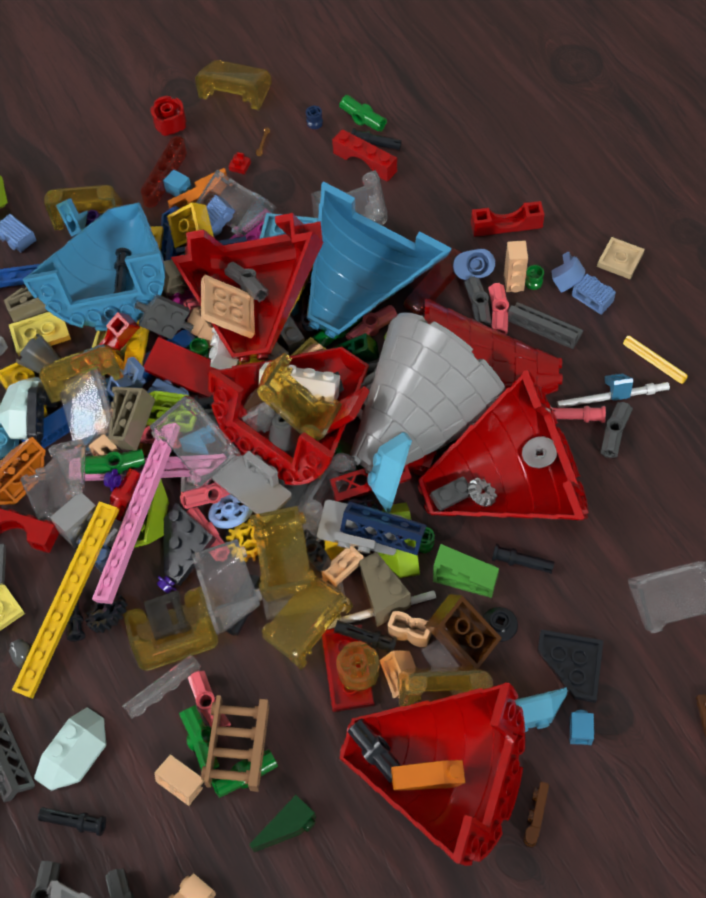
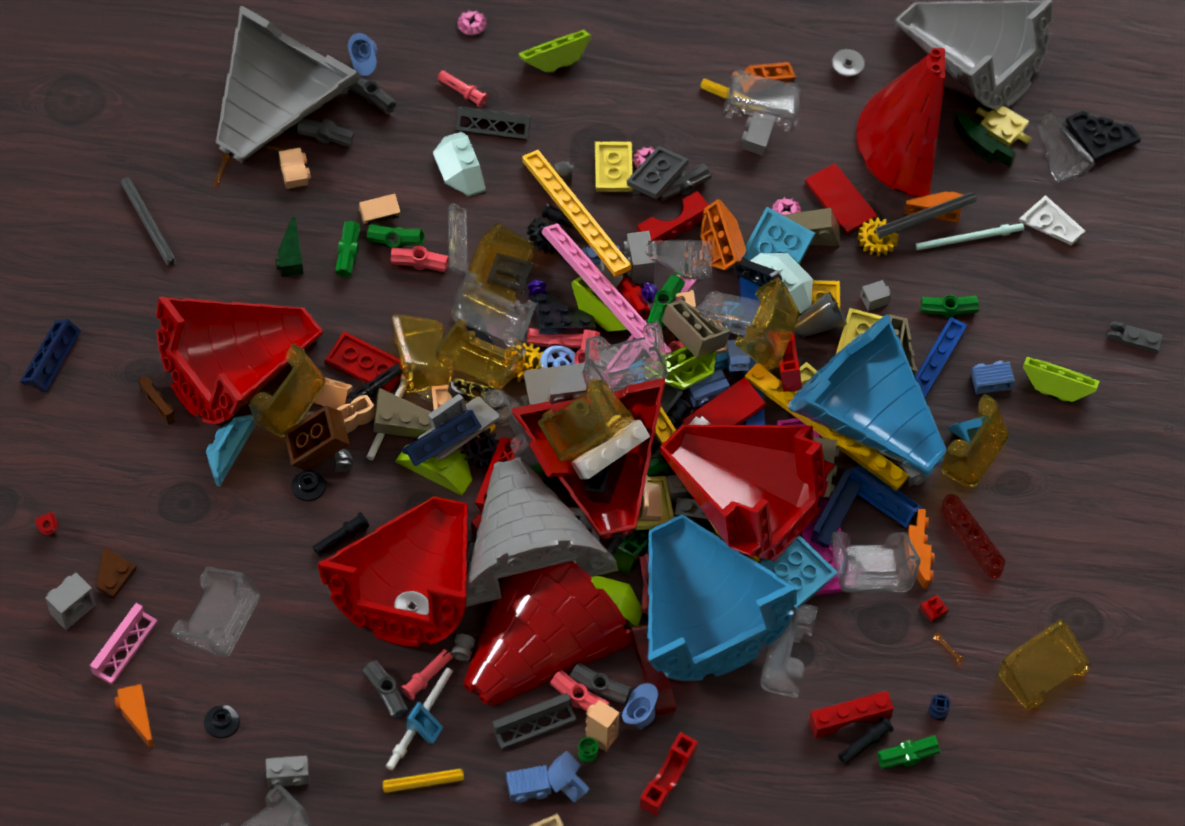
camera: 120 degrees right, 0 degrees up
(82, 822) = (403, 140): black pin -> none
(121, 269) = (863, 417): black pin -> none
(163, 316) = (780, 403): dark grey plate -> none
(168, 115) = (1042, 579): red brick -> none
(177, 183) = (945, 537): dark azure brick -> none
(188, 219) = (873, 504): yellow brick -> none
(219, 213) = (873, 536): medium blue brick -> none
(227, 306) = (734, 449): light nougat plate -> none
(247, 280) = (746, 490): dark grey piece -> none
(254, 755) = (362, 264): medium nougat fence -> none
(362, 677) = (355, 358): clear yellow brick -> none
(374, 748) = (295, 326): black piece -> none
(388, 468) = (482, 467): medium azure wedge -> none
(427, 544) = (417, 479): green wheel -> none
(428, 775) = (238, 344): orange slope -> none
(450, 494) = (435, 519): dark grey plate -> none
(464, 572) = (365, 484): bright green wedge -> none
(485, 499) = (424, 546): light grey gear -> none
(573, 661) = (234, 506): black plate -> none
(581, 727) = (184, 471): dark azure brick -> none

